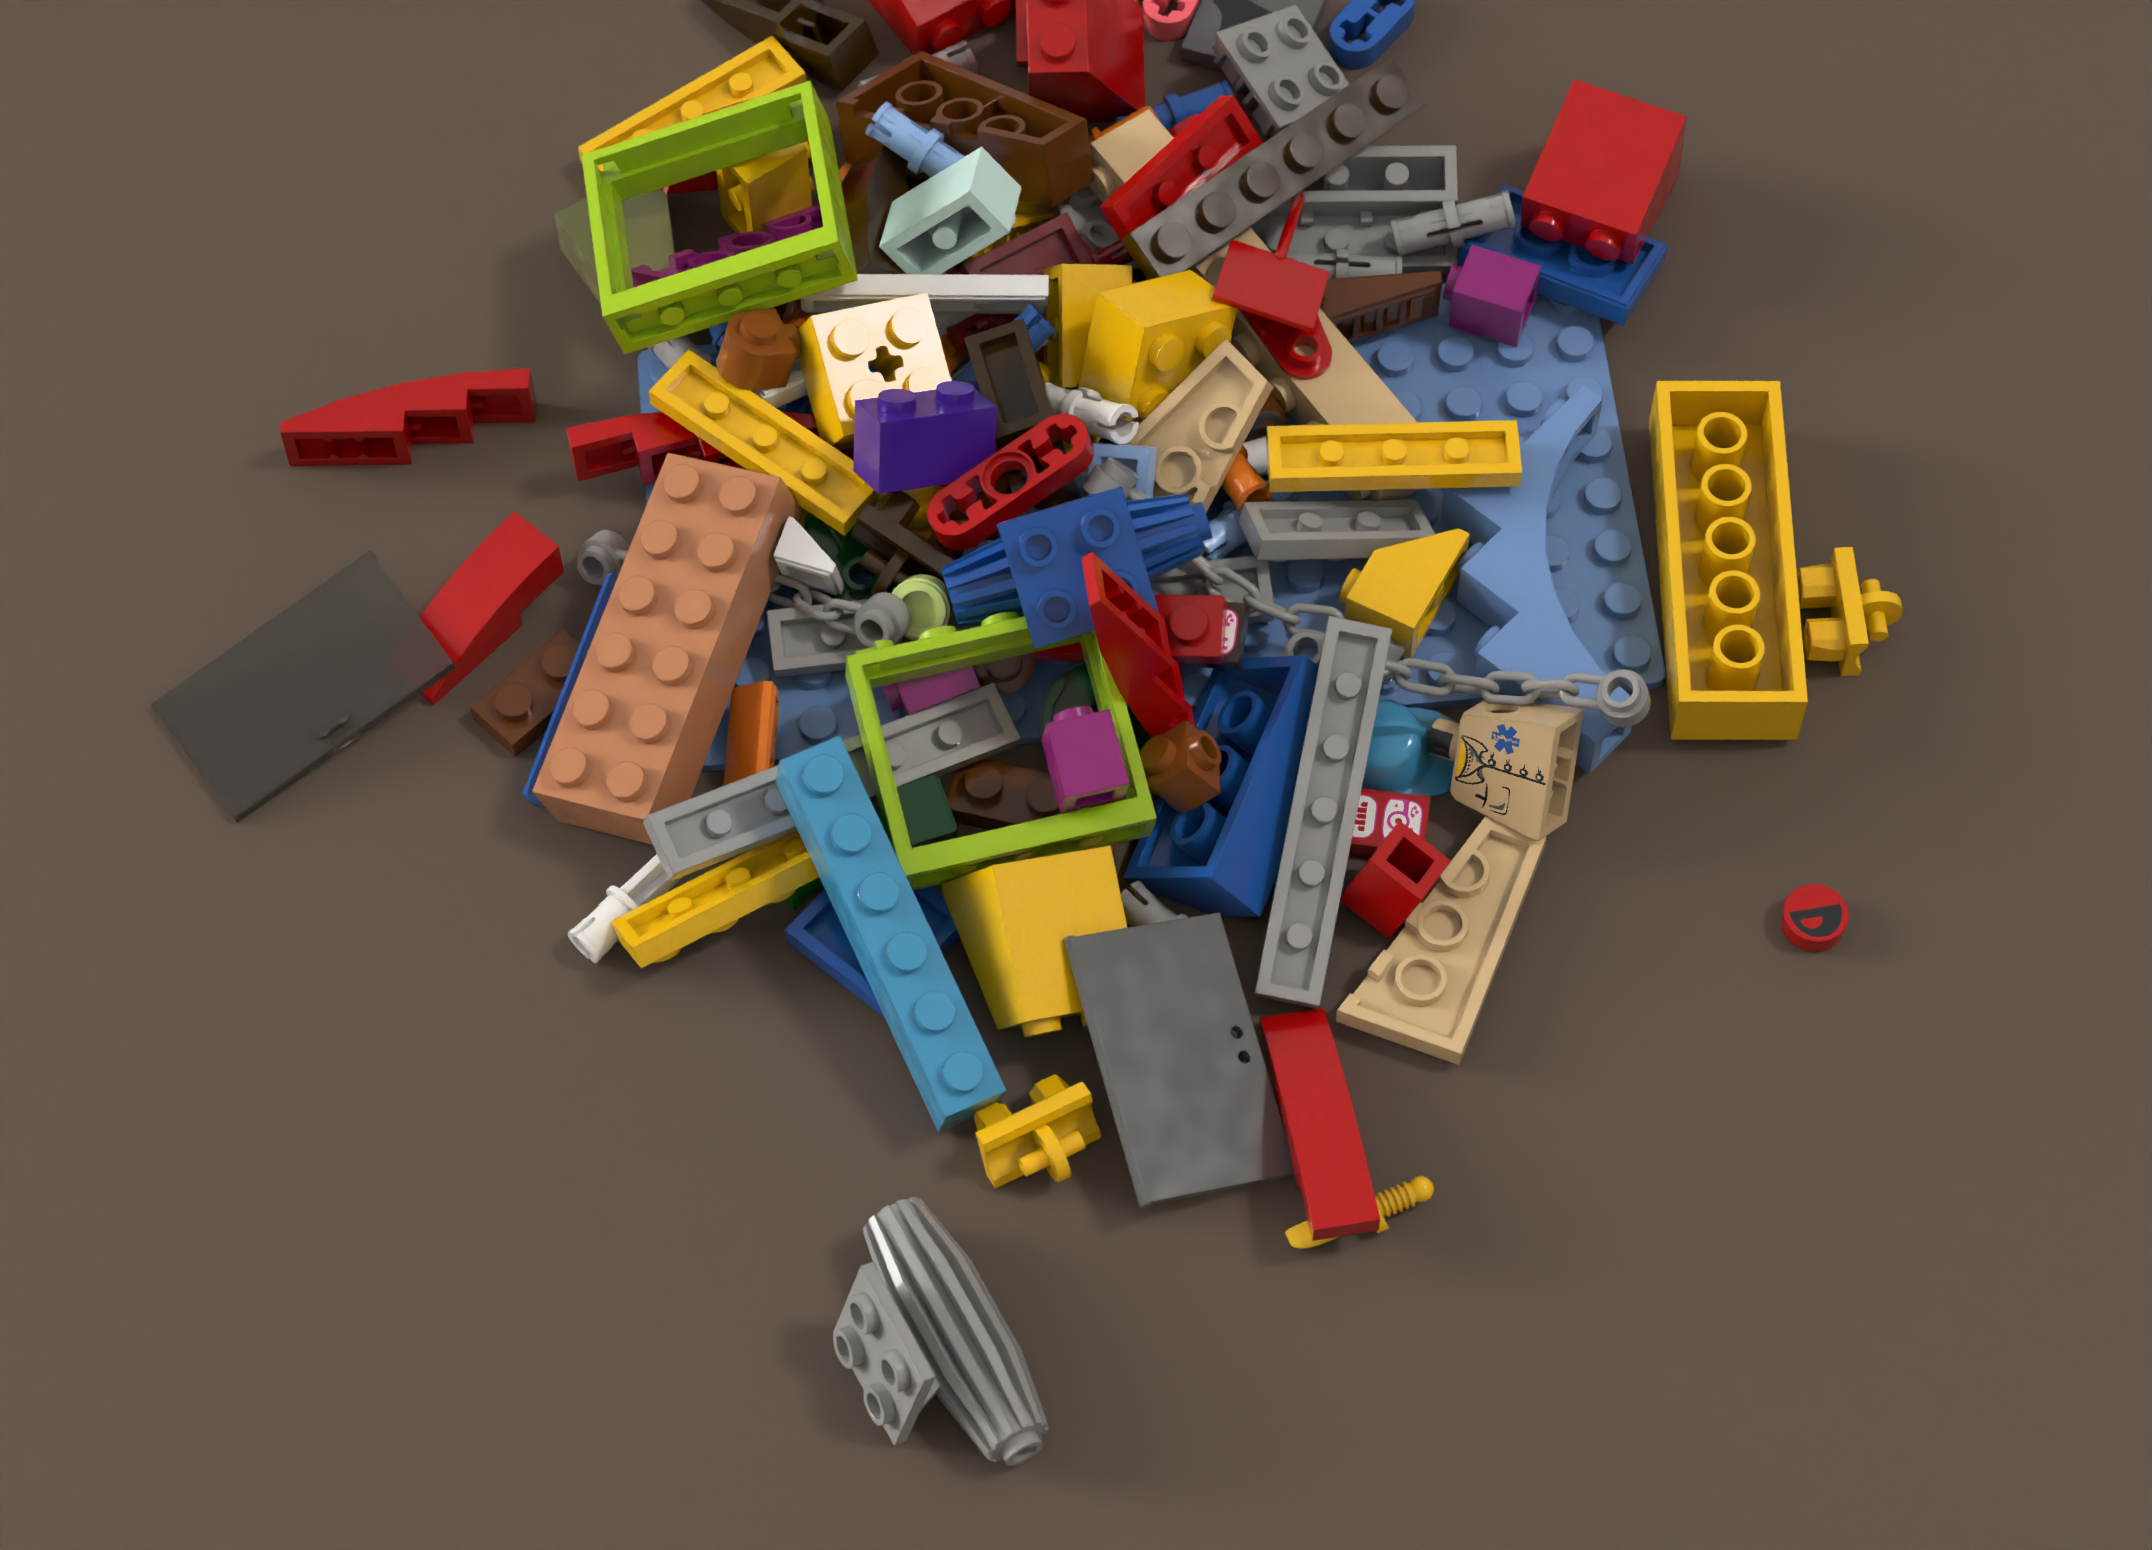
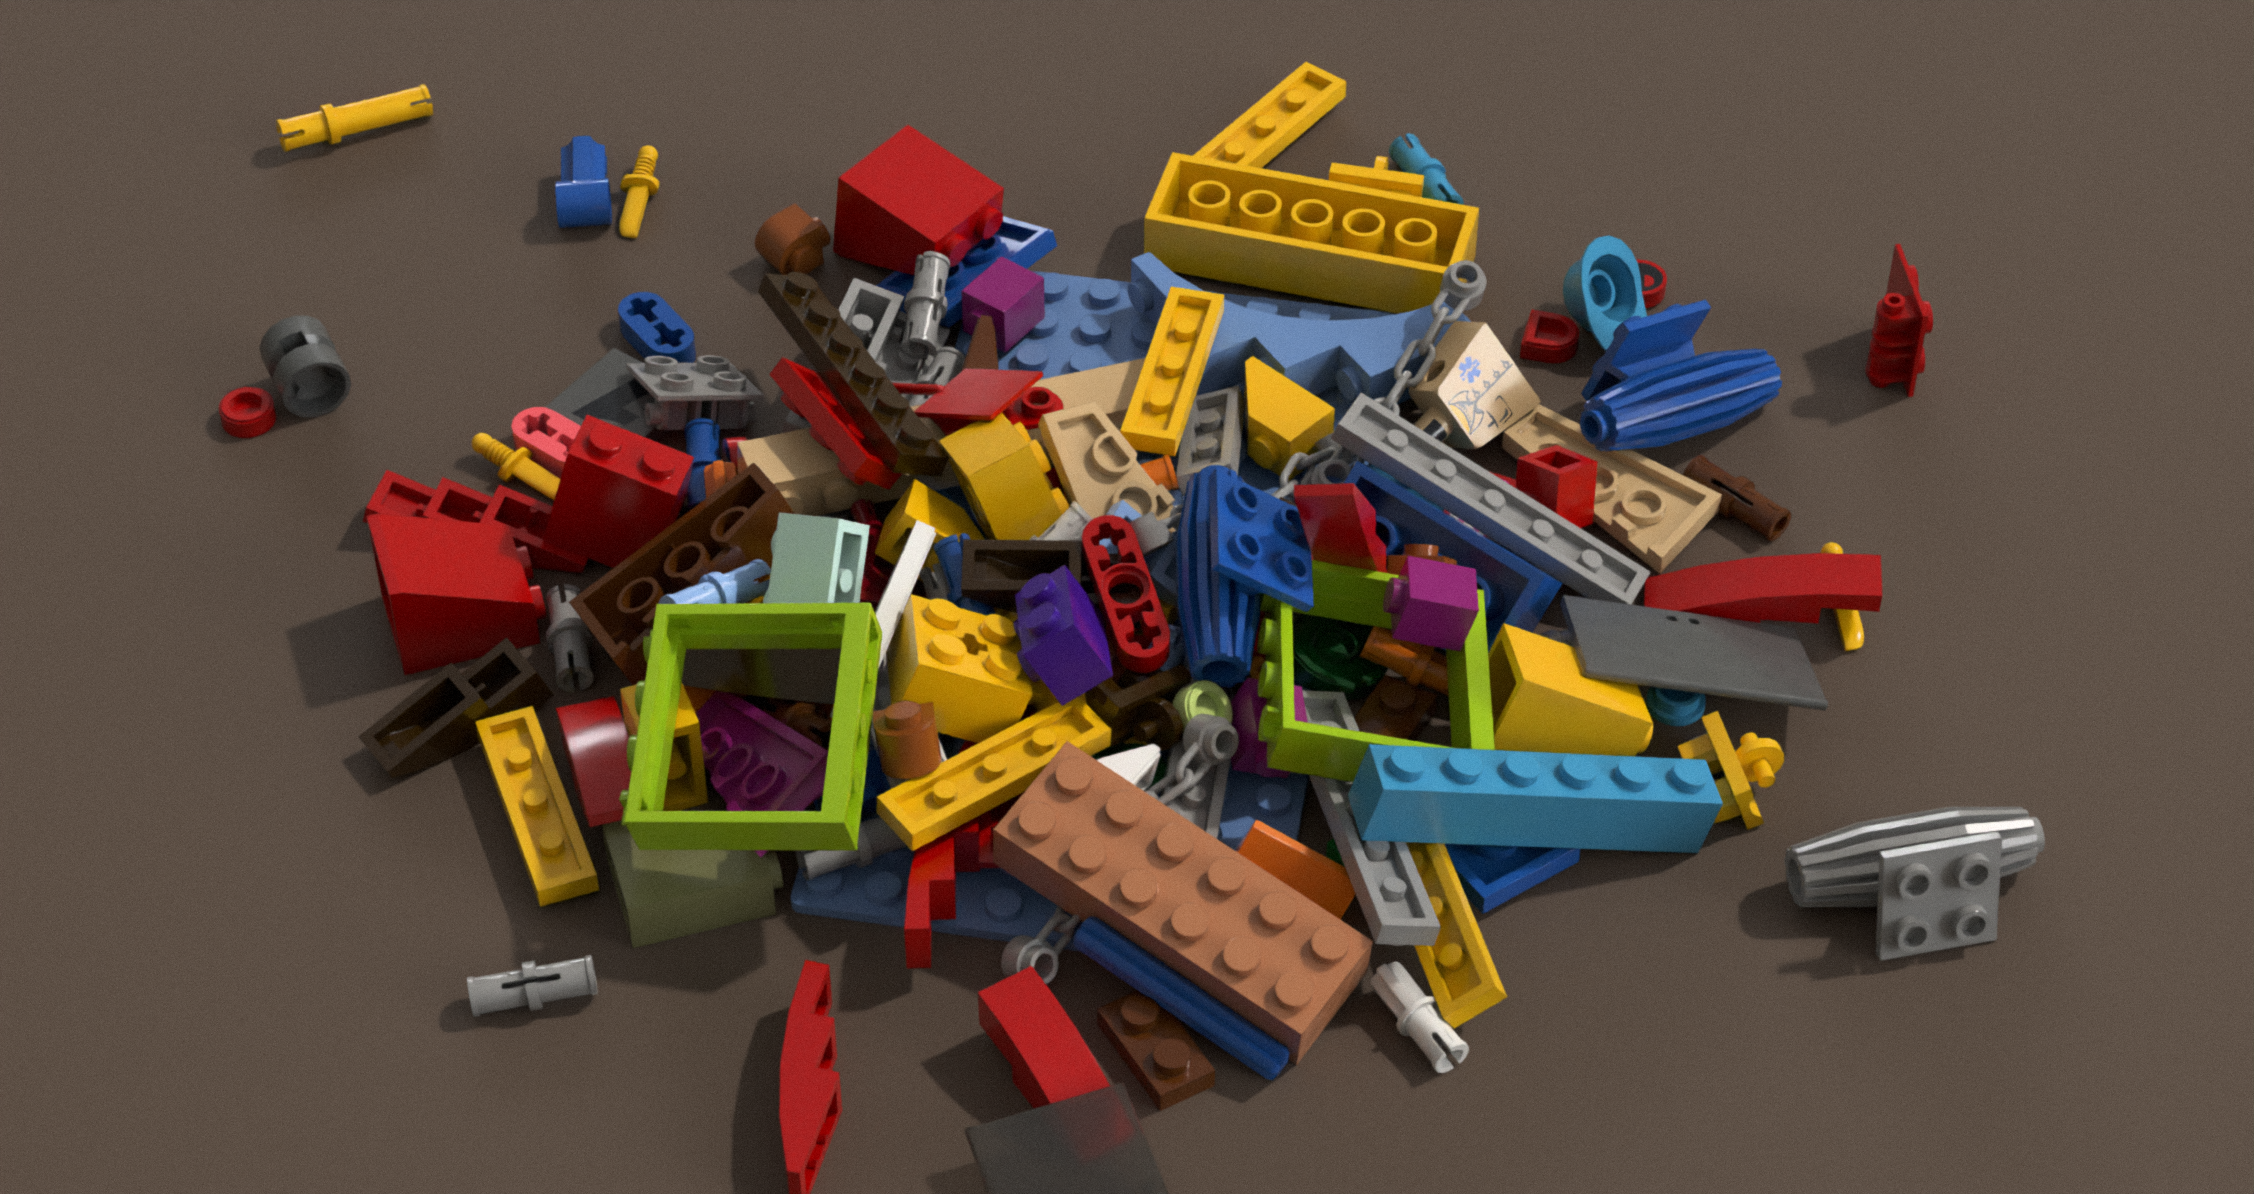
camera: 75 degrees left, 15 degrees down
(478, 181) = (532, 985): none -> light grey pin
(1478, 1076) = (1762, 515): none -> reddish brown pin
(1536, 92) = (792, 241): none -> dark orange plate
(1597, 965) = (1658, 392): none -> blue plate
(1685, 841) = (1549, 338): none -> red tile
(1740, 883) = (1604, 288): none -> dark azure piece
(1784, 1197) = (1899, 329): none -> red hinge
(1909, 660) = (1419, 162): none -> dark azure pin
(1919, 481) = (1277, 118): none -> yellow plate

